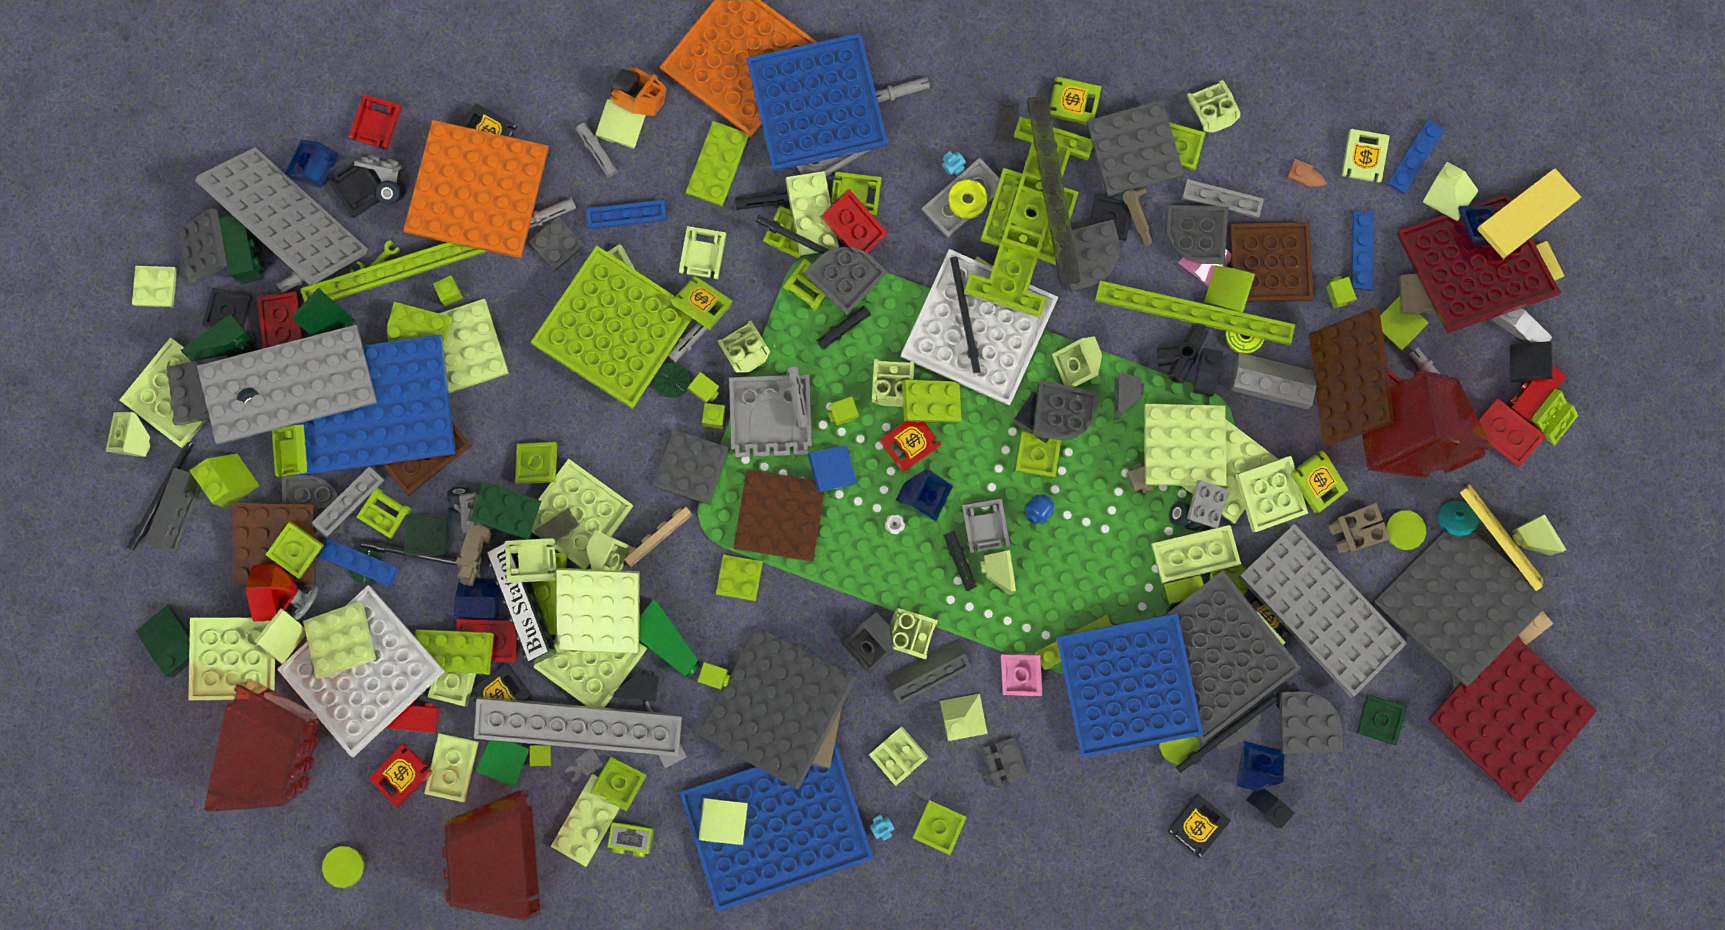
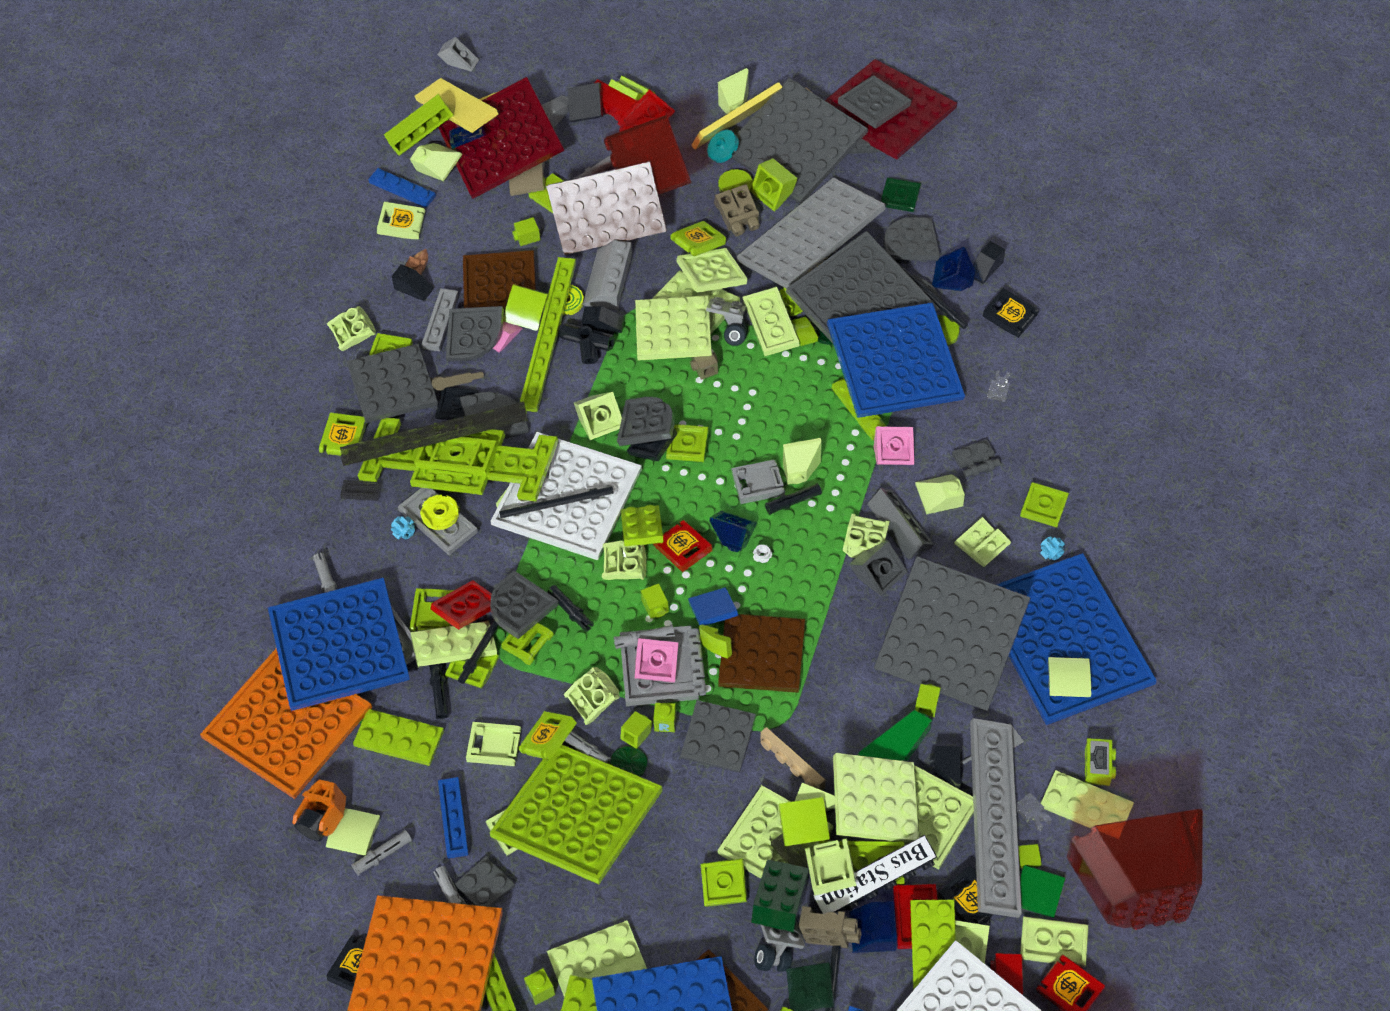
camera: 90 degrees left, 25 degrees down
(577, 538) = (804, 821): none -> lime slope
(618, 783) = (1046, 776): lime tile -> none
(739, 578) = (826, 687): lime plate -> none
(768, 408) = (656, 660): none -> bright pink slope
(788, 467) = (714, 642): none -> lime slope
(1039, 509) = (739, 438): blue head -> none
(1094, 798) = (999, 387): none -> clear plate
(1126, 393) = (630, 377): dark grey slope -> none
(1272, 168) = (411, 283): none -> black slope
(1362, 250) = (485, 221): blue plate -> none
(1395, 572) = (773, 184): none -> lime slope
(1498, 170) = (418, 124): none -> lime brick
(1512, 699) = (874, 101): none -> dark grey plate
(1615, 217) = (458, 55): none -> light grey slope

